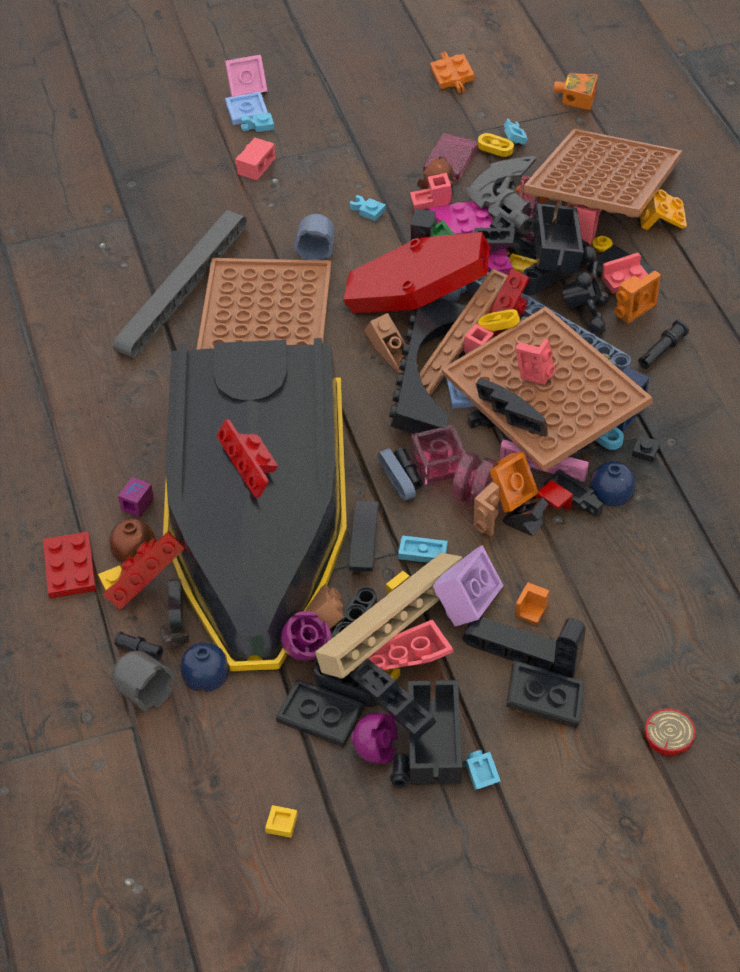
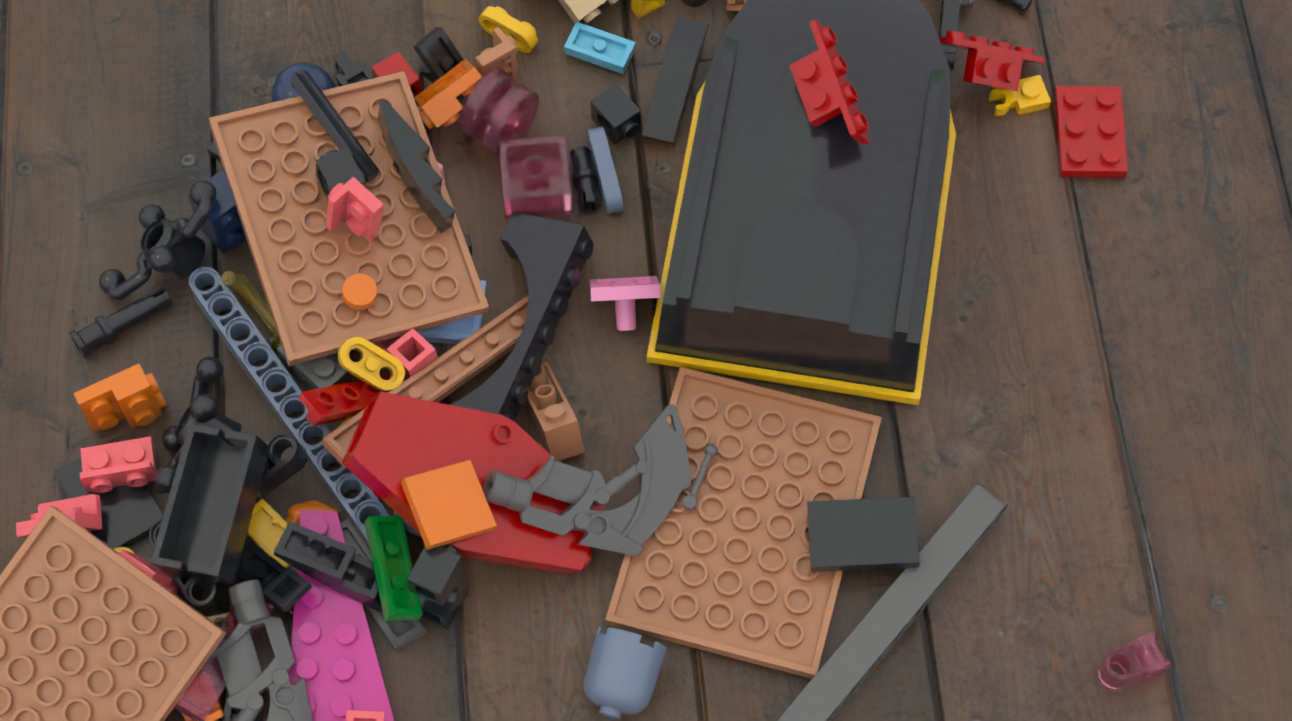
camera: 170 degrees left, 15 degrees up
(40, 293) = (1139, 660): none -> clear pink piece
(128, 537) = (999, 143): copper cylinder -> none
(136, 496) = (989, 209): magenta brick -> none
(195, 310) = (863, 534): none -> black tile
(296, 313) = (690, 501): none -> dark grey hinge
(320, 313) = (662, 476): none -> dark grey piece
(363, 401) = (624, 293): none -> bright pink tile
(398, 507) = (616, 114): none -> black brick
(424, 240) = (448, 504): none -> orange tile
(495, 548) = (521, 32): none -> yellow plate
(514, 340) = (359, 291): none -> orange tile
(554, 385) = (336, 168): none -> black brick
(572, 415) = (333, 123): none -> black axle
(641, 241) = (82, 509): none -> coral bracket
(656, 366) = (165, 244): none -> black wheel

